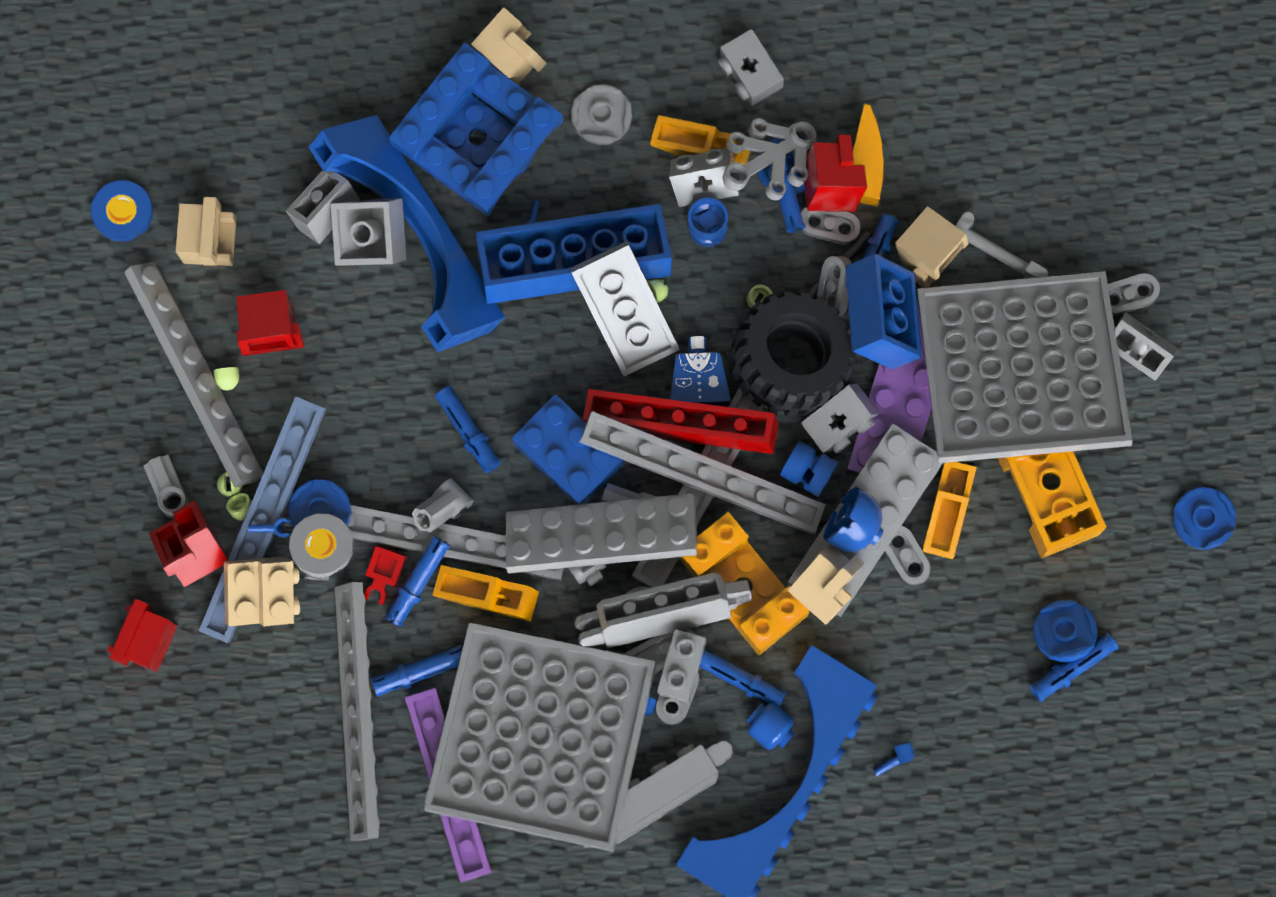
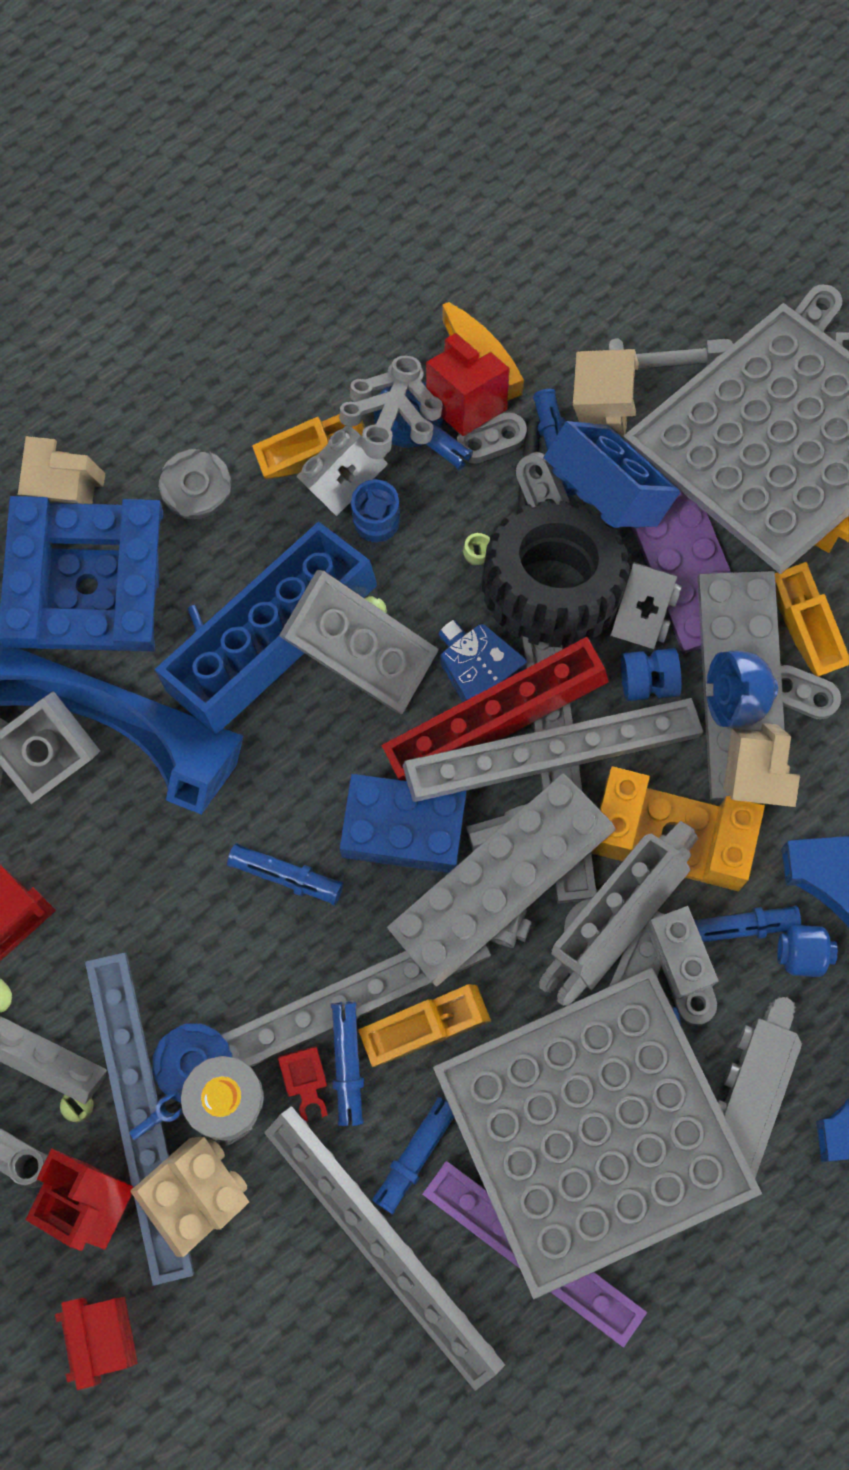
camera: 40 degrees left, 5 degrees down
(238, 506) = (103, 1121): yellowish green hinge -> none
(441, 506) = (316, 969): light grey piece -> none
(750, 52) = (308, 345): light grey brick -> none

